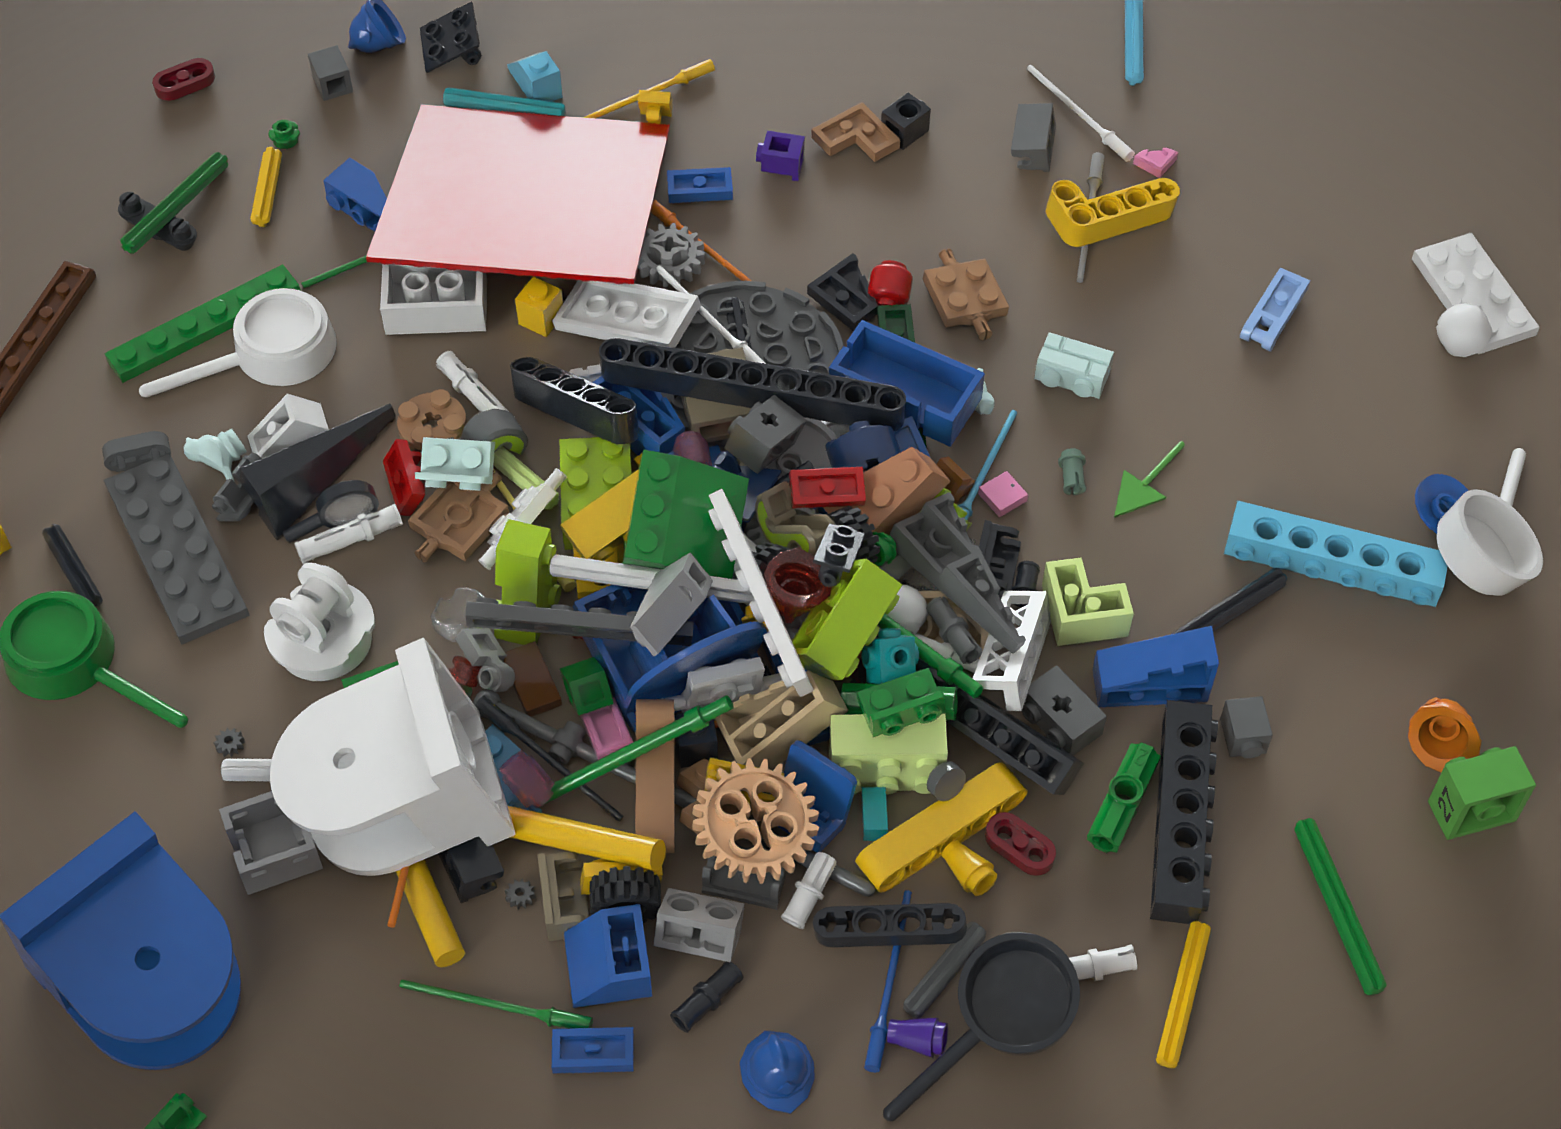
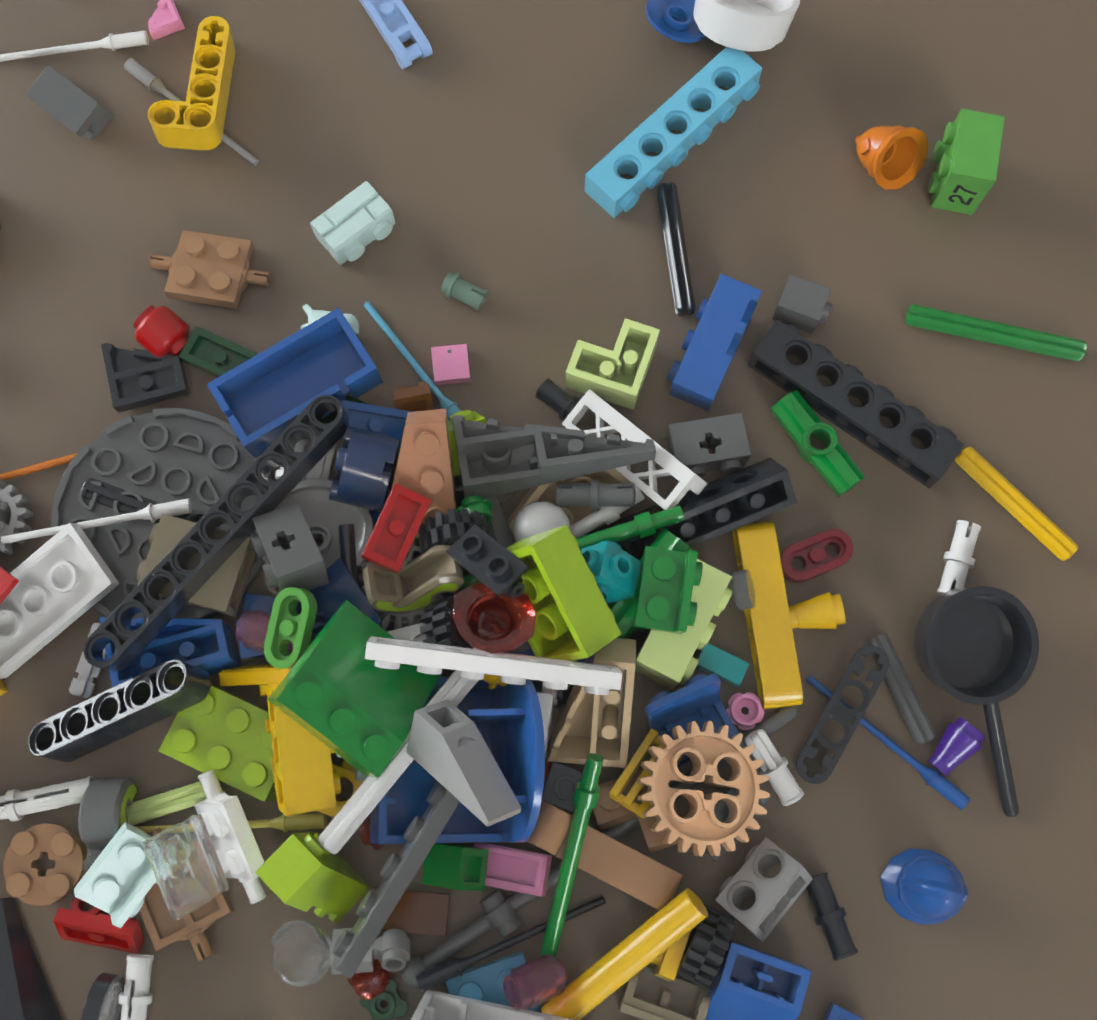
camera: 60 degrees left, 20 degrees up
(484, 496) = (186, 866): none -> clear plate
(717, 452) = (288, 626): none -> bright green plate
(843, 841) = (754, 707): none -> bright pink plate
(1000, 553) = (516, 407): black hinge -> none
(1137, 493) = (512, 251): bright green piece -> none

